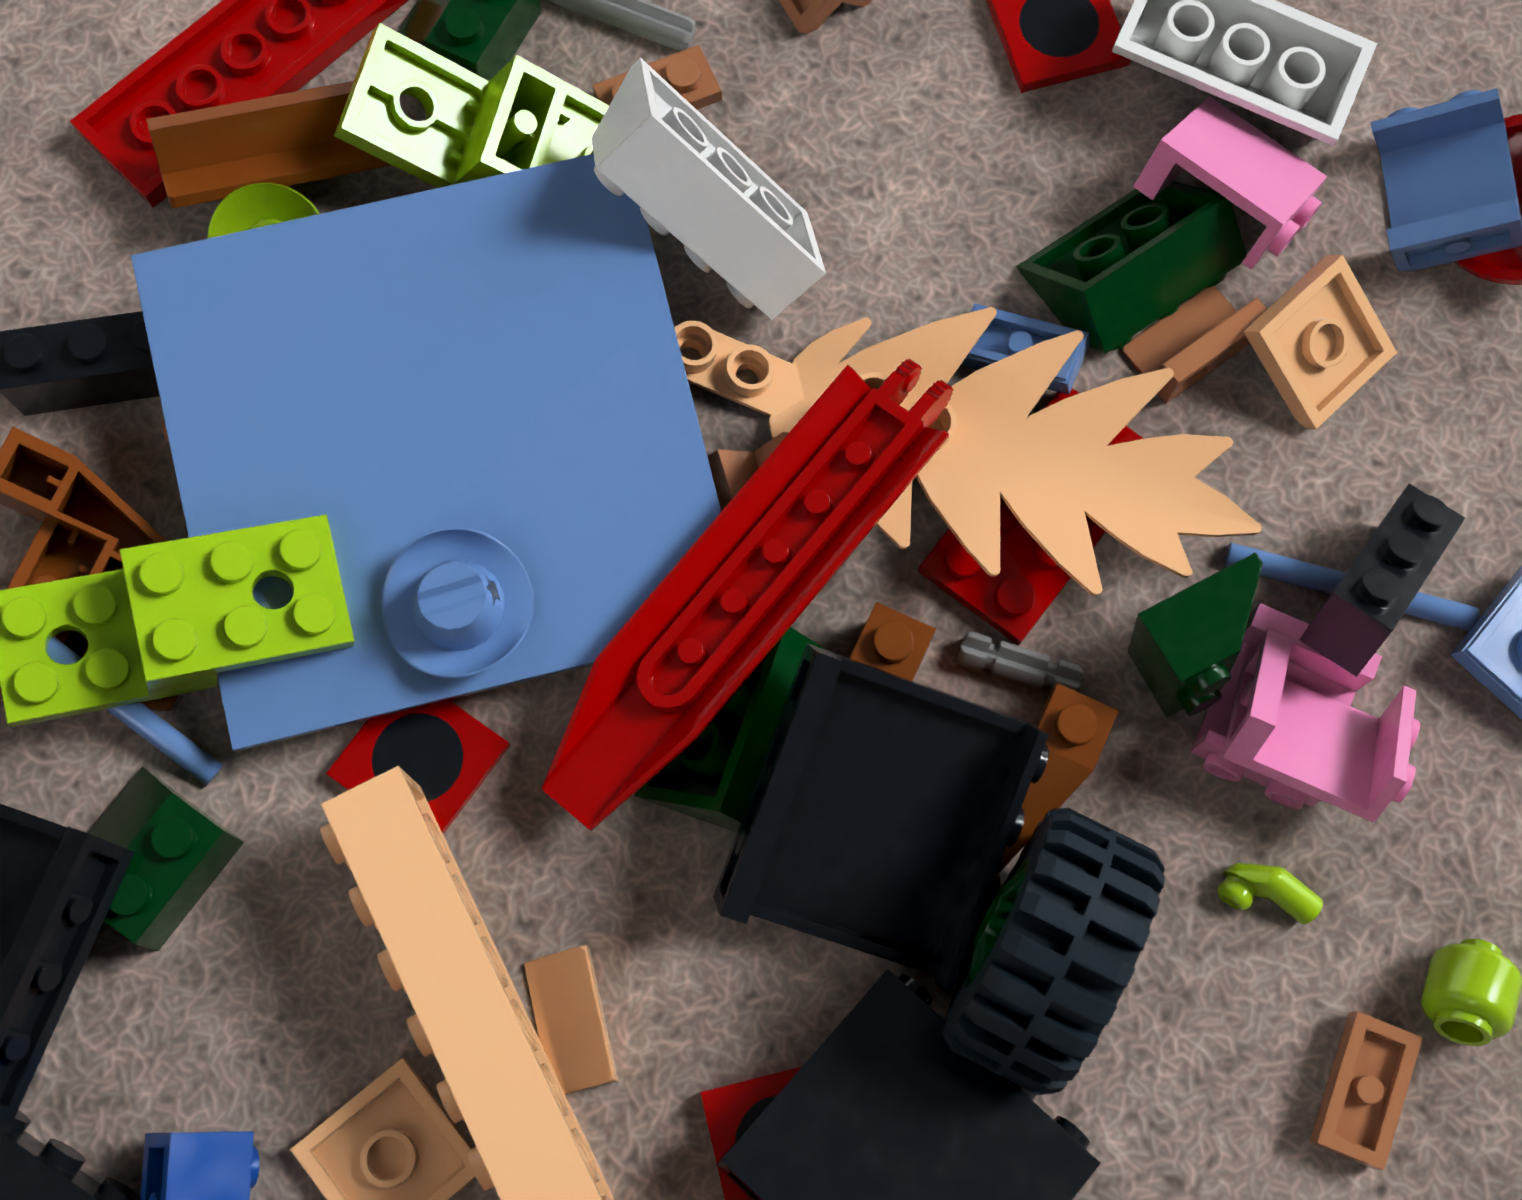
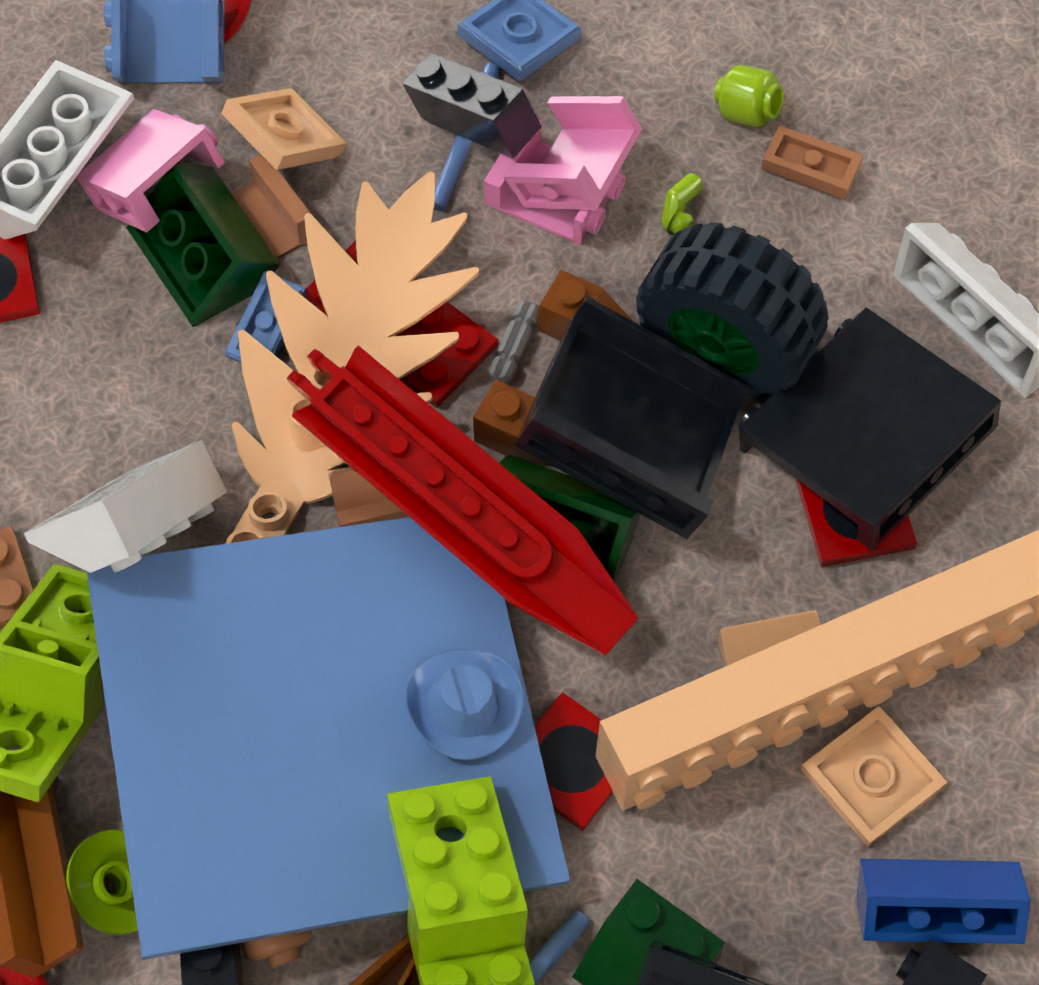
camera: 85 degrees left, 10 degrees down
(1195, 637) = (511, 216): dark green slope -> none

